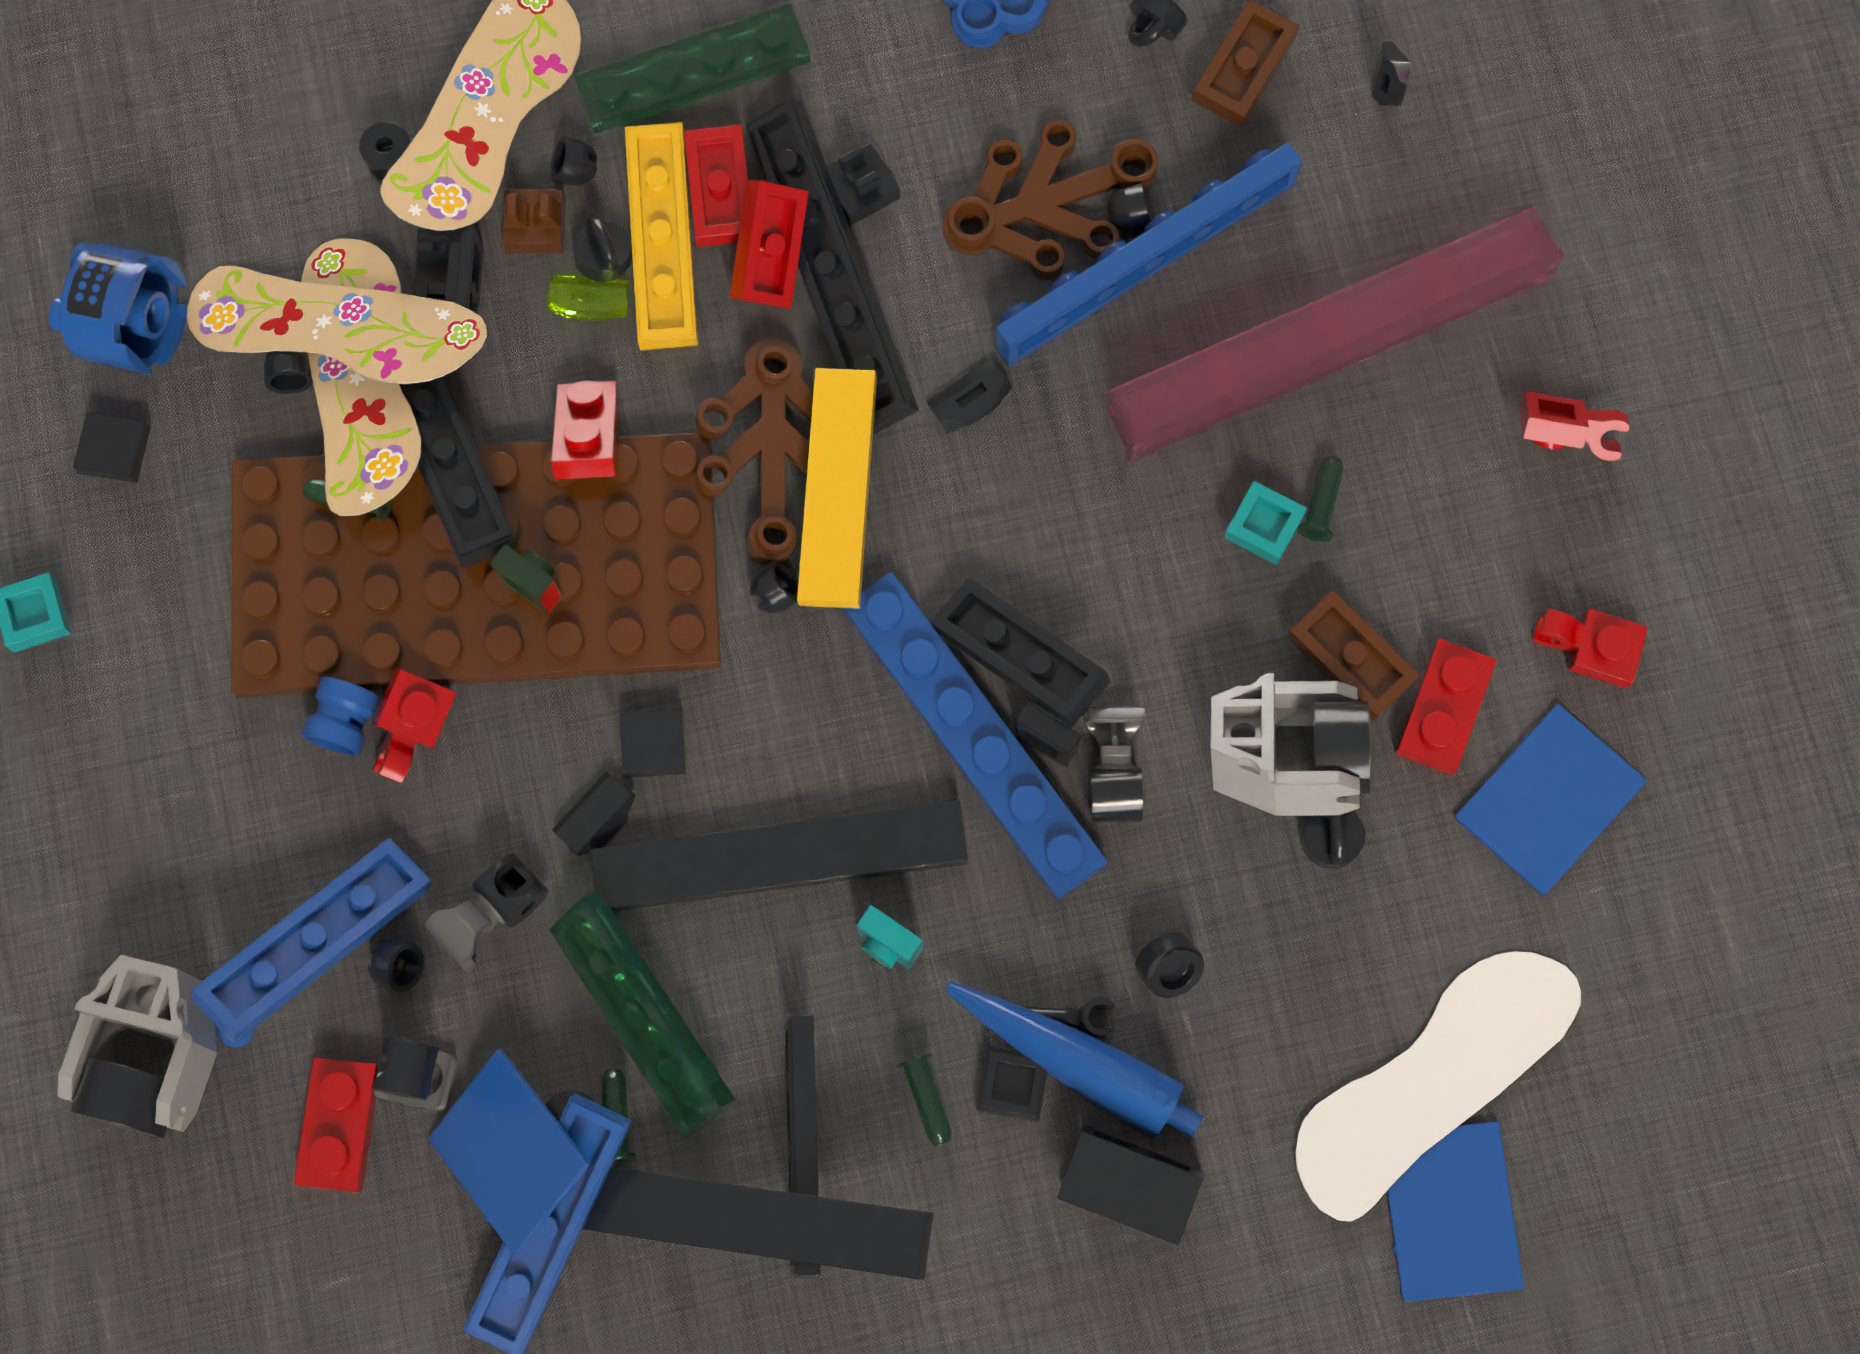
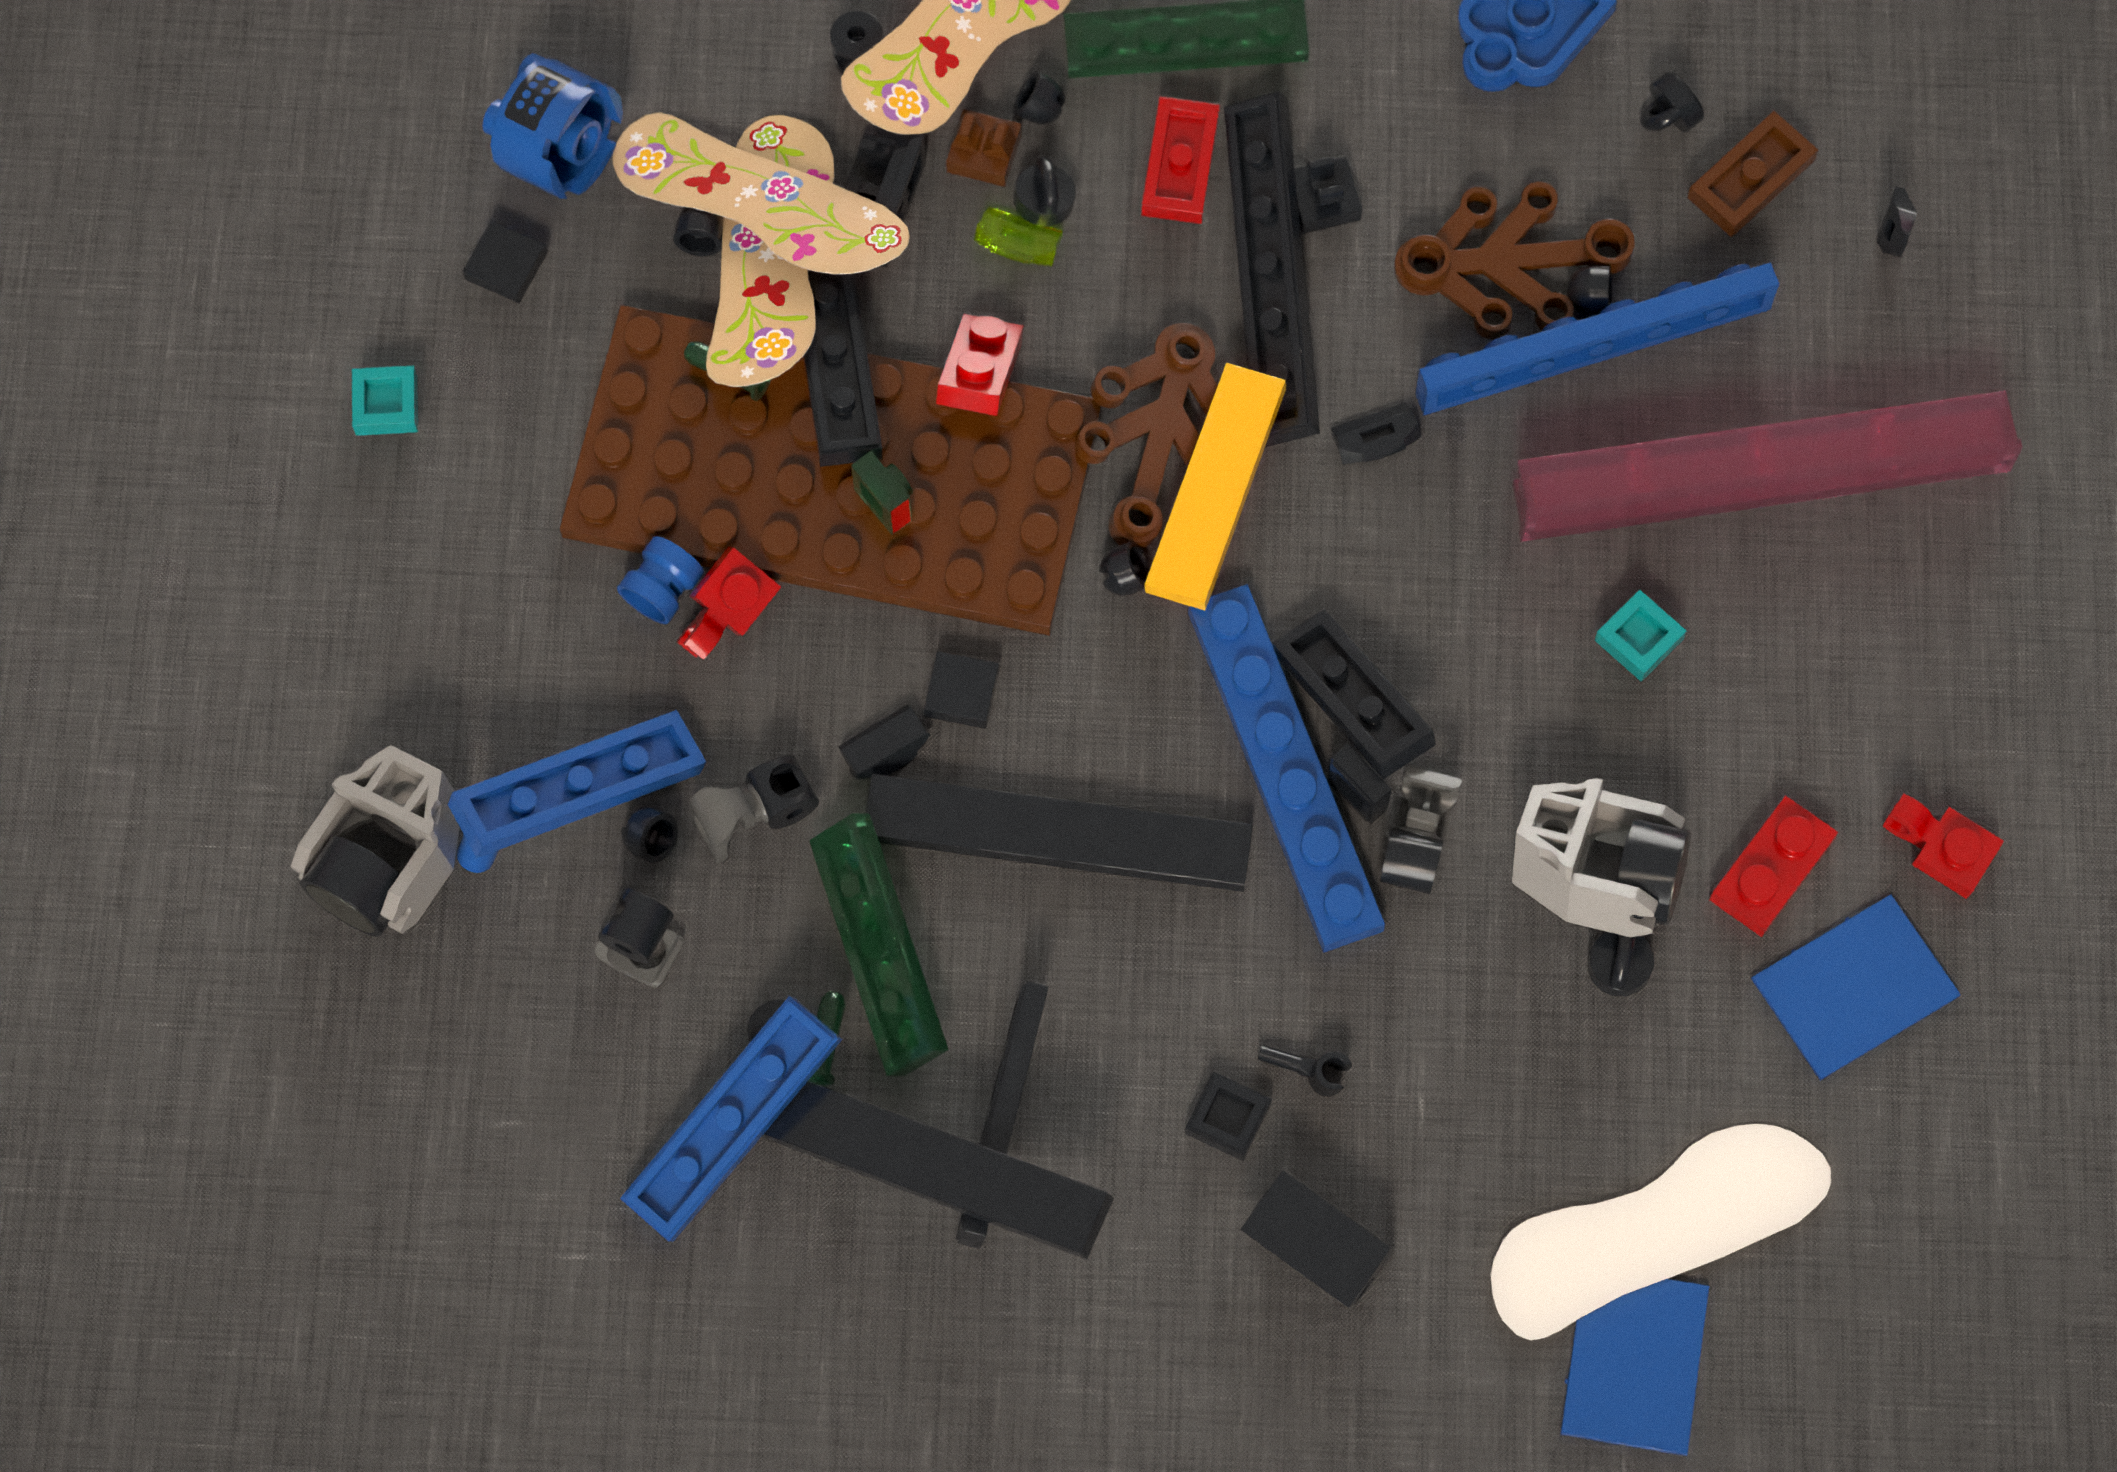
camera: 15 degrees right, 5 degrees down
(336, 1125) = (549, 973): red plate -> none
(508, 1152) = (712, 1036): blue window -> none
(661, 236) = (1107, 195): yellow tile -> none
(769, 244) = (1214, 230): red plate -> none
(888, 940) = (1143, 939): teal plate -> none
(927, 1099) = (1138, 1104): clear green piece -> none
(1086, 1065) = (1309, 1117): blue piece -> none
(1170, 965) = (1419, 1041): black tile -> none
(1323, 501) = (1706, 630): clear green piece -> none
(1353, 653) = (1694, 787): reddish brown plate -> none
(1566, 422) = (1979, 616): red plate -> none

